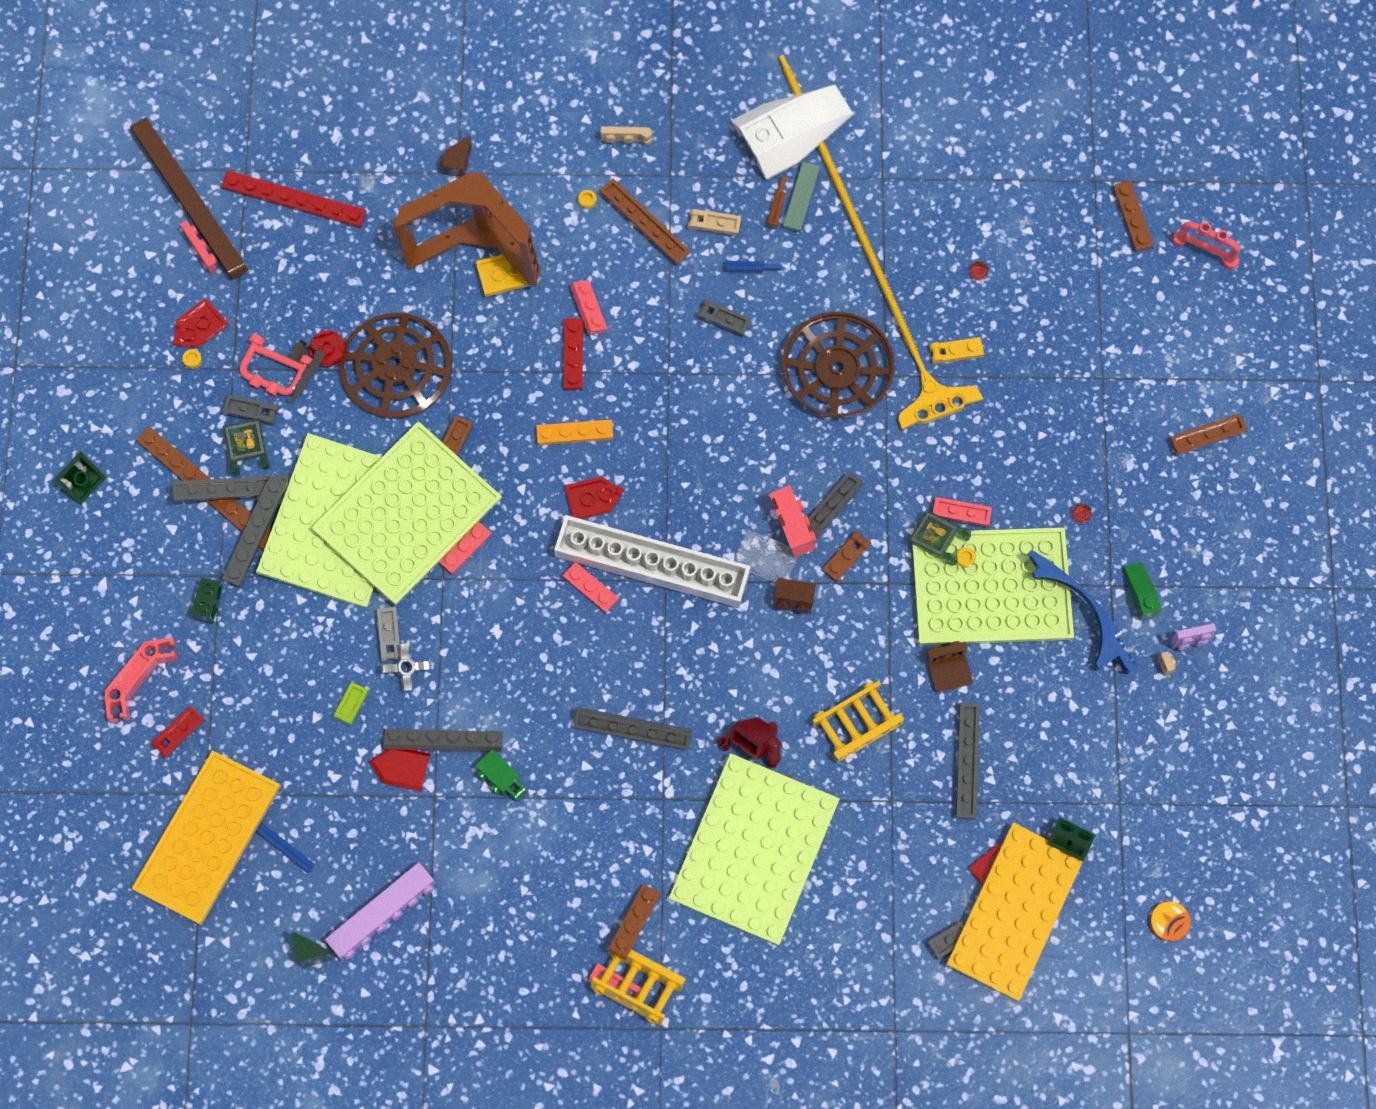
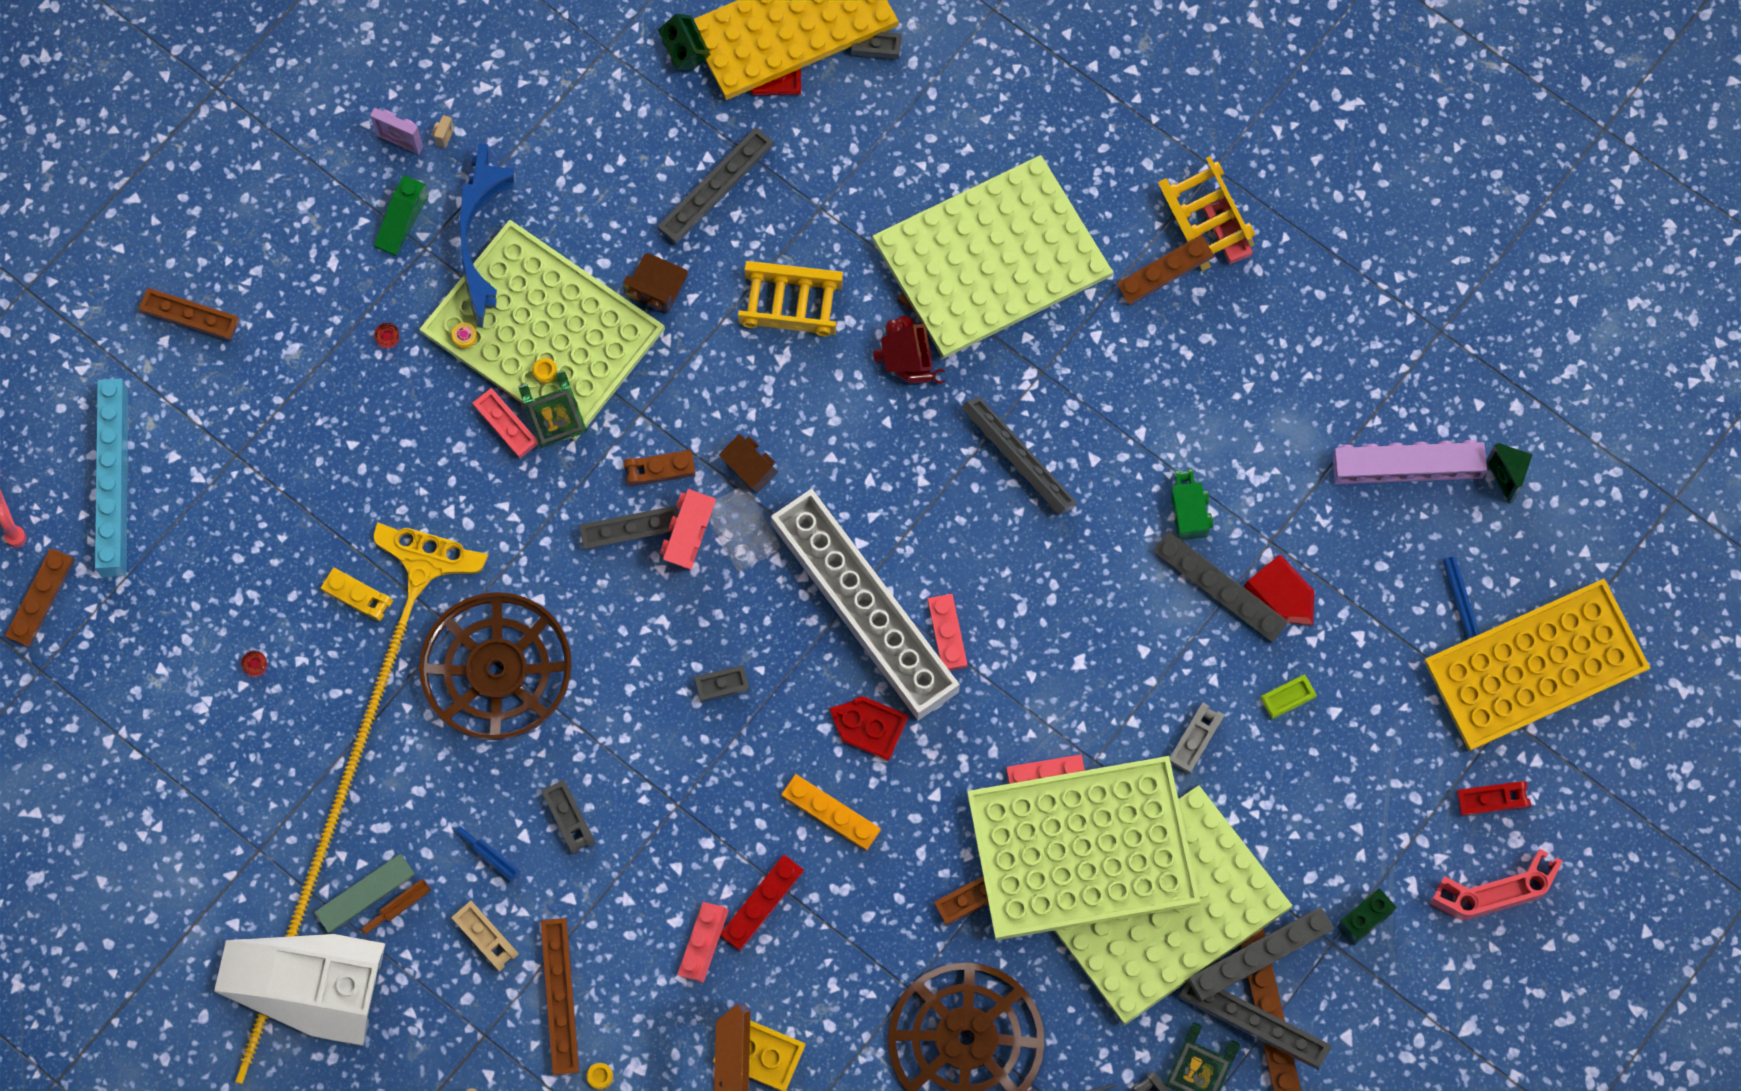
camera: 140 degrees left, 0 degrees up
(406, 684) = (1206, 694): light grey pin -> none
(699, 456) = (722, 683): none -> dark grey plate
(1033, 541) = (464, 335): none -> tile
(1158, 307) = (111, 478): none -> medium azure brick

